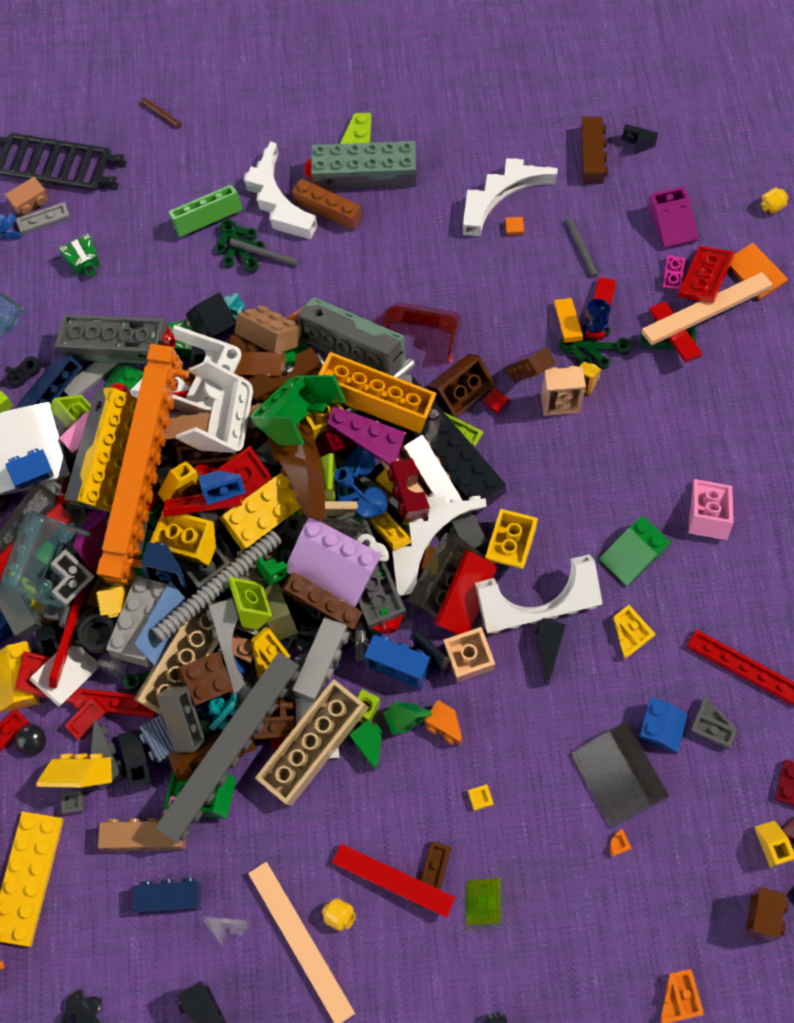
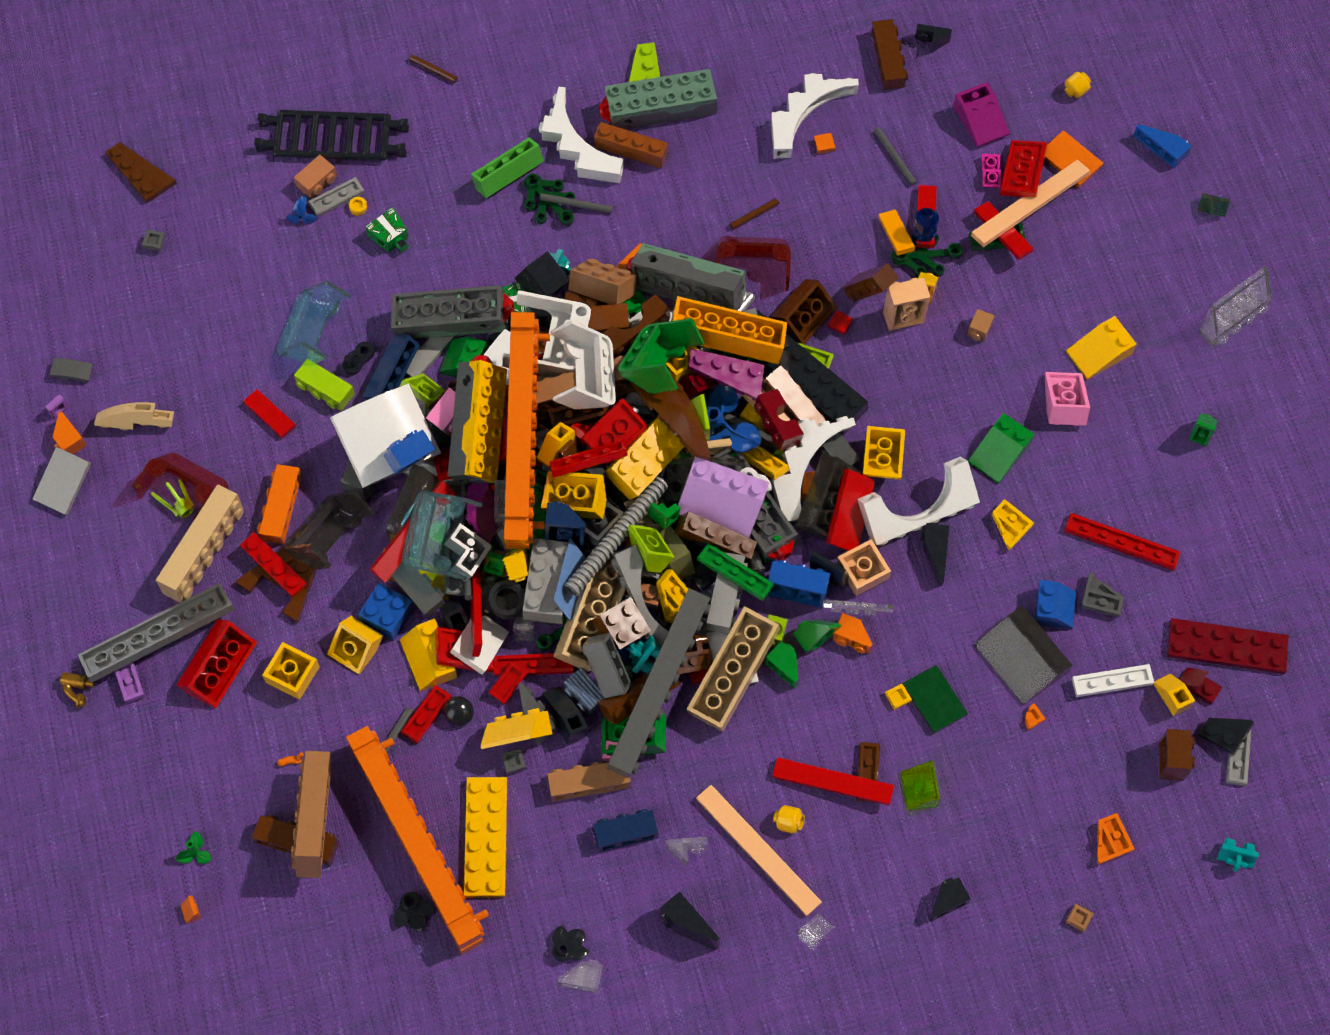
camera: 15 degrees left, 0 degrees up
(60, 229) = (357, 206): none -> yellow tile
(92, 588) = (494, 562): none -> green panel
(221, 486) = (604, 440): blue slope -> none
(332, 641) = (735, 572): none -> green tile
(435, 283) = (758, 211): none -> reddish brown bar
(451, 696) = (854, 607): none -> clear wing
(518, 807) = (935, 699): none -> dark green tile
(635, 423) = (980, 325): none -> medium nougat brick
(711, 818) = (1112, 680): none -> white plate
(756, 463) = (1102, 348): none -> yellow slope

